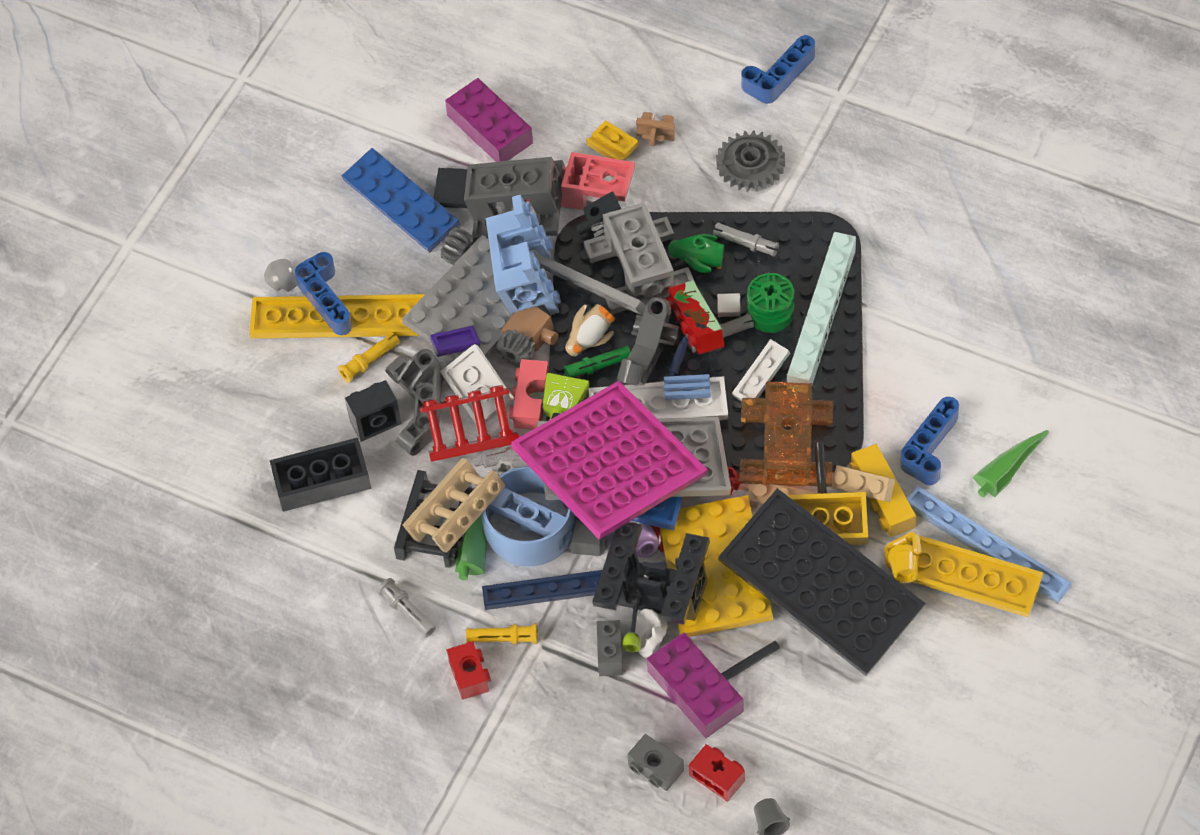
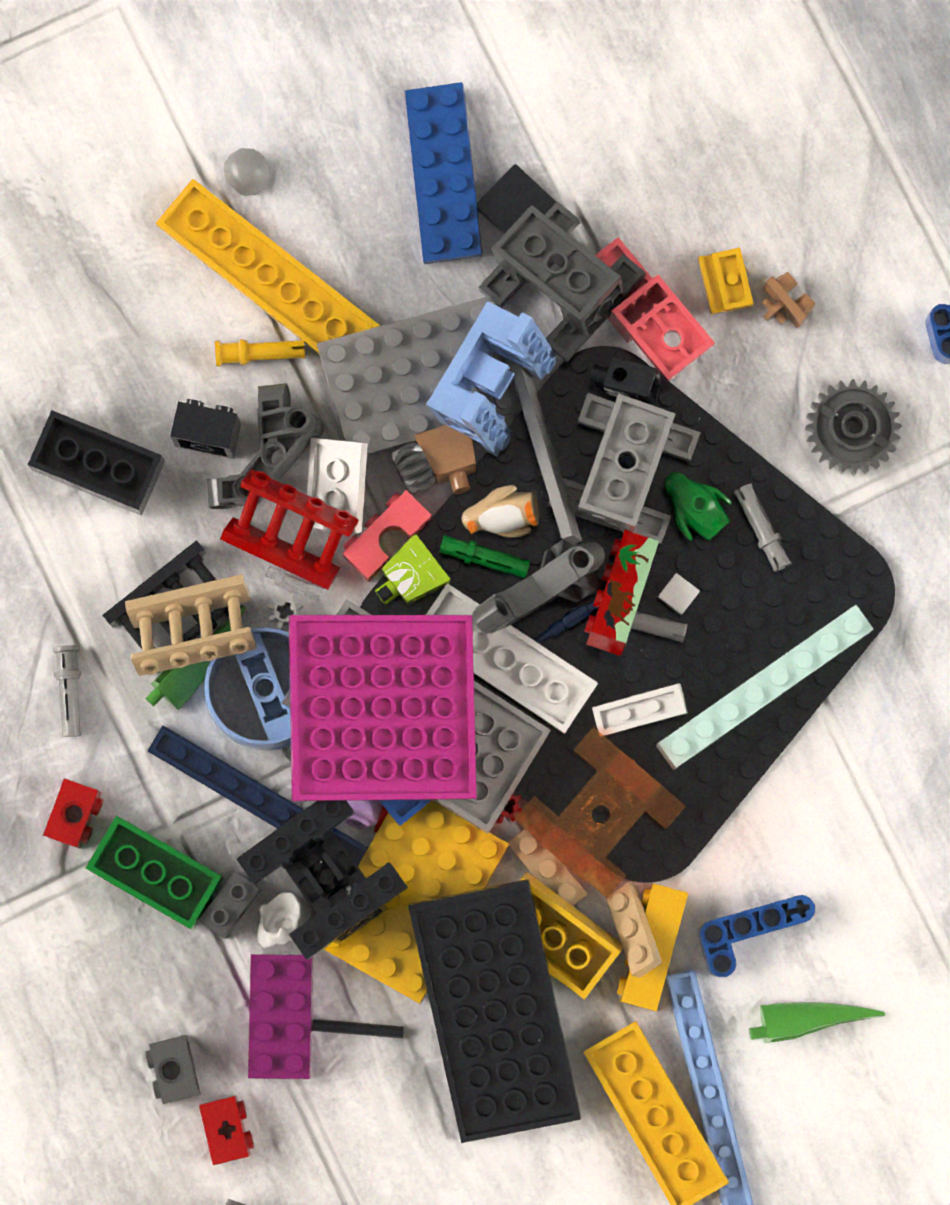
camera: 30 degrees right, 25 degrees up
(312, 277) = (264, 245): blue beam -> none
(454, 341) = (350, 417): dark purple tile -> none
(456, 245) = (451, 288): dark grey gear -> none
(489, 121) = (614, 147): magenta brick -> none
(513, 633) = (150, 808): yellow pin -> none
(547, 661) = (154, 873): none -> green brick
(631, 641) = (255, 917): lime hinge -> none
(686, 384) = (551, 656): medium blue tile -> none
(770, 302) = (718, 652): green wheel -> none
(820, 467) = (600, 883): black bar -> none
(903, 557) = (597, 1057): yellow piece -> none

